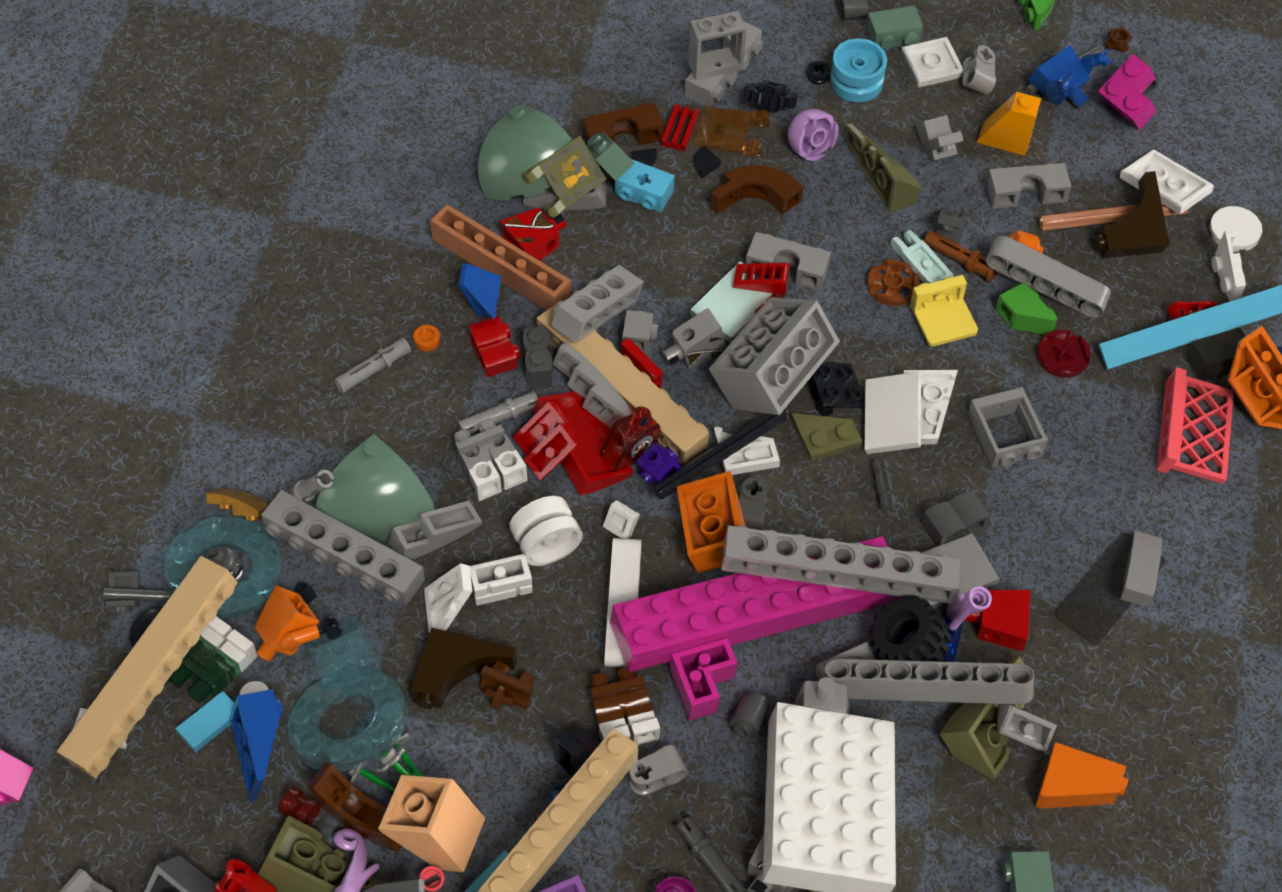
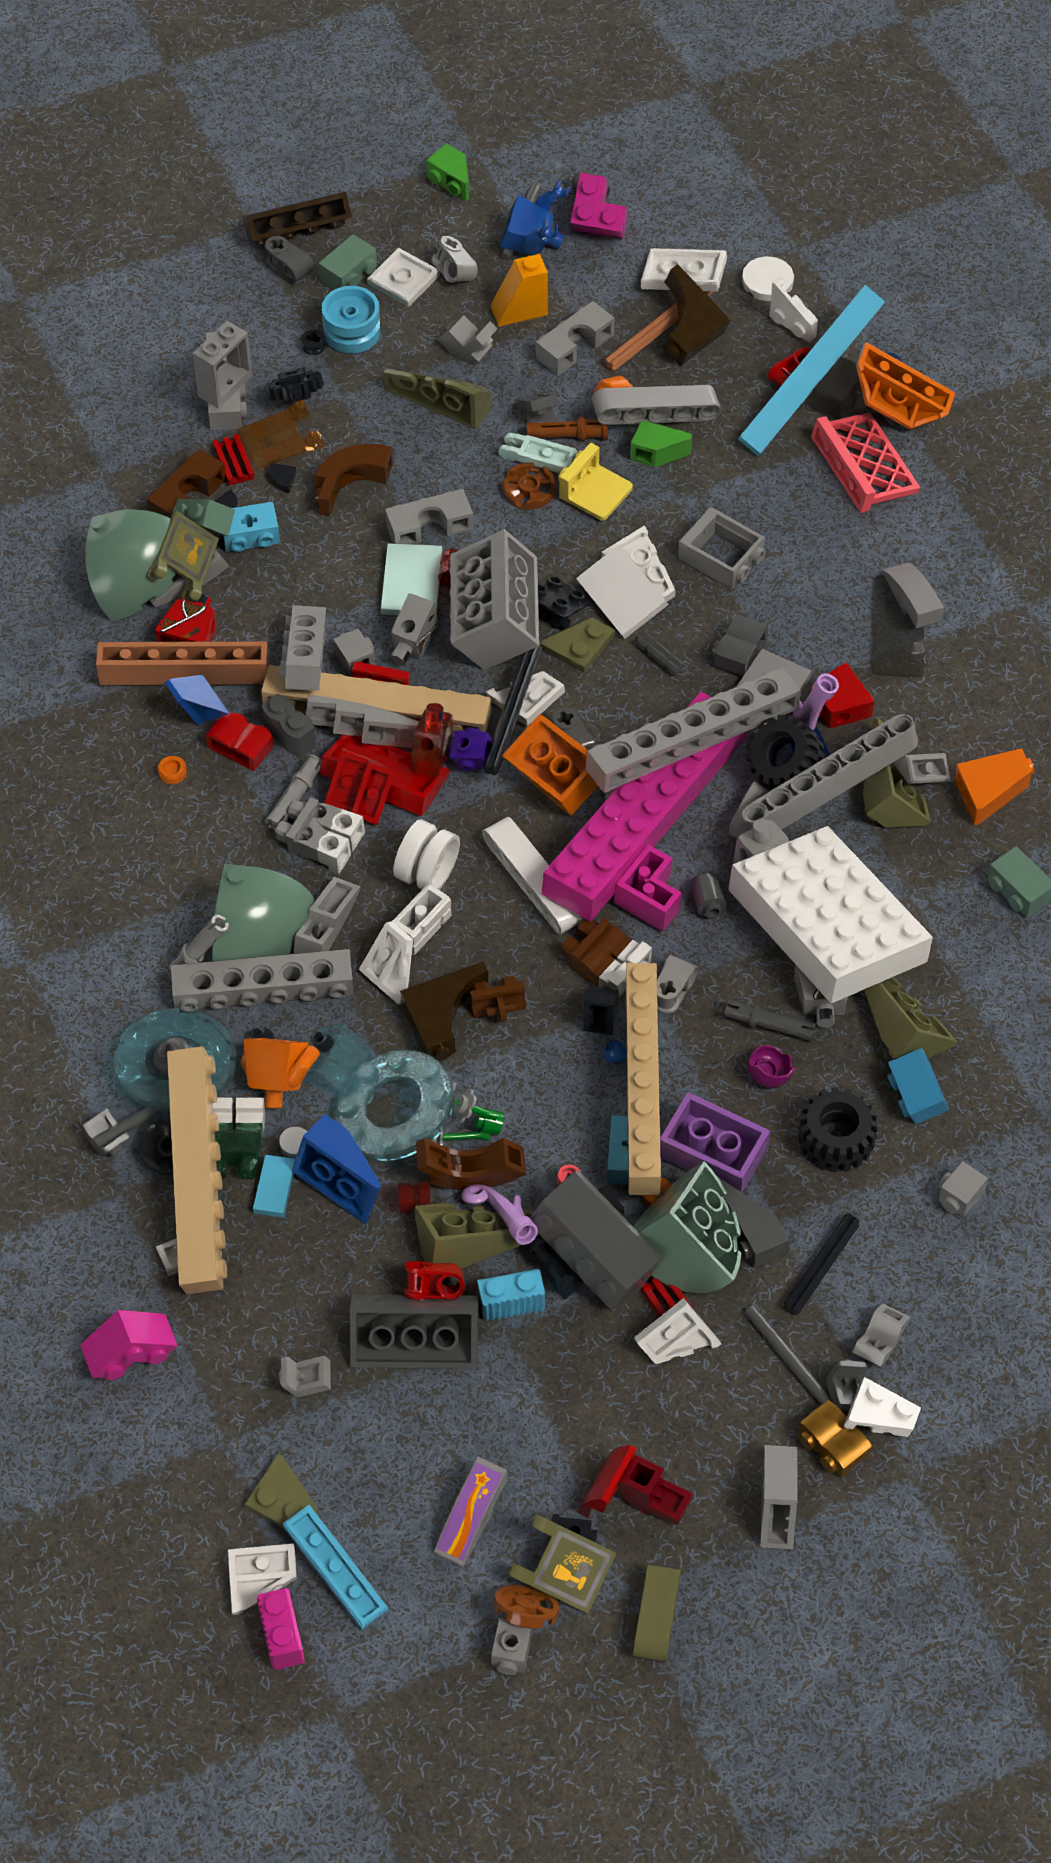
camera: 35 degrees left, 0 degrees up
(241, 502) = (149, 999): pearl gold slope -> none
(382, 359) = (151, 810): light grey pin -> none
(433, 821) = (538, 1129): light nougat slope -> none
(621, 520) = (475, 812): white tile -> none
(770, 285) = (425, 533): red slope -> none
(811, 129) = (354, 393): lavender cylinder -> none
(1063, 353) = (714, 462): dark red tile -> none
(1118, 39) = (545, 168): reddish brown plate -> none

